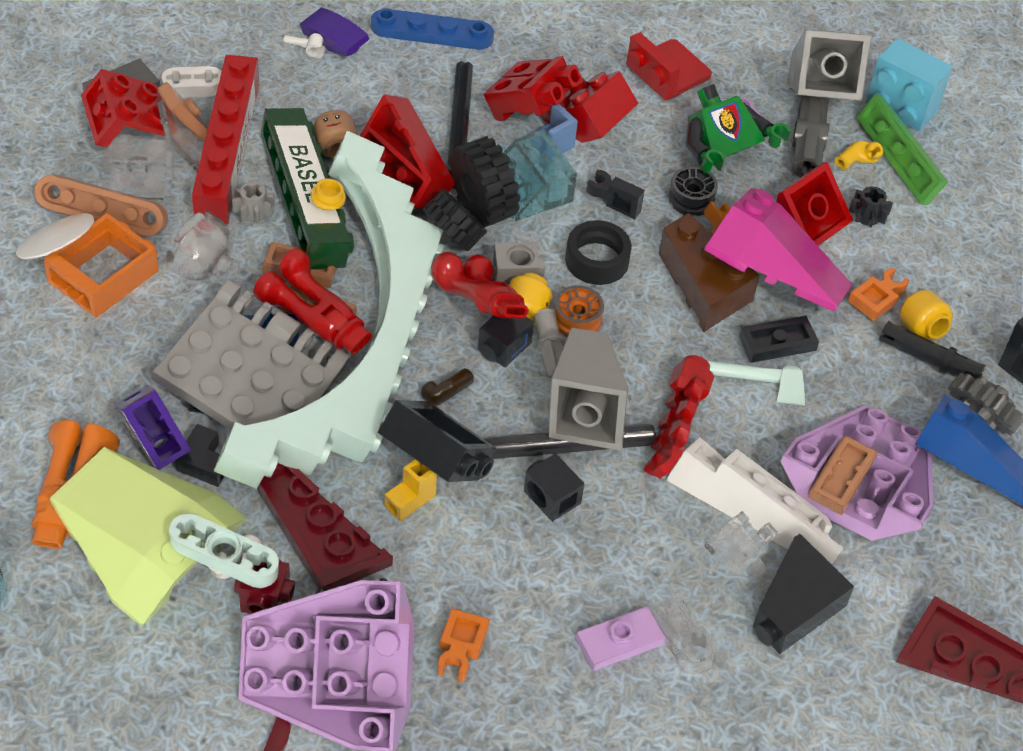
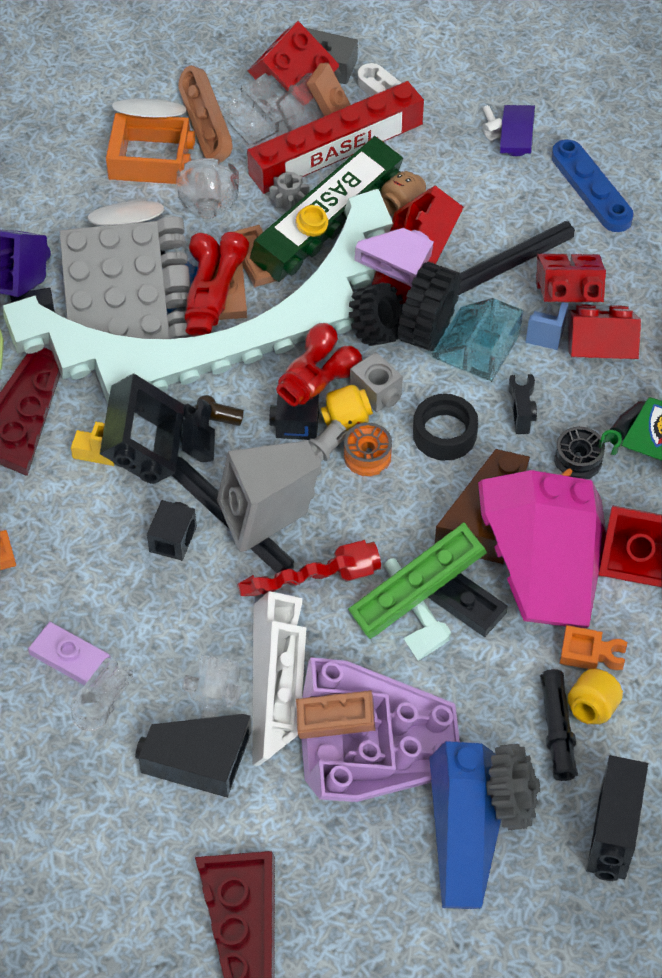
camera: 60 degrees right, 5 degrees up
(165, 322) = (126, 213): none -> white shield
(434, 160) = (395, 253): none -> lavender slope
(469, 415) = (197, 435): none -> black plate
(745, 353) = (417, 580): none -> bright green tile

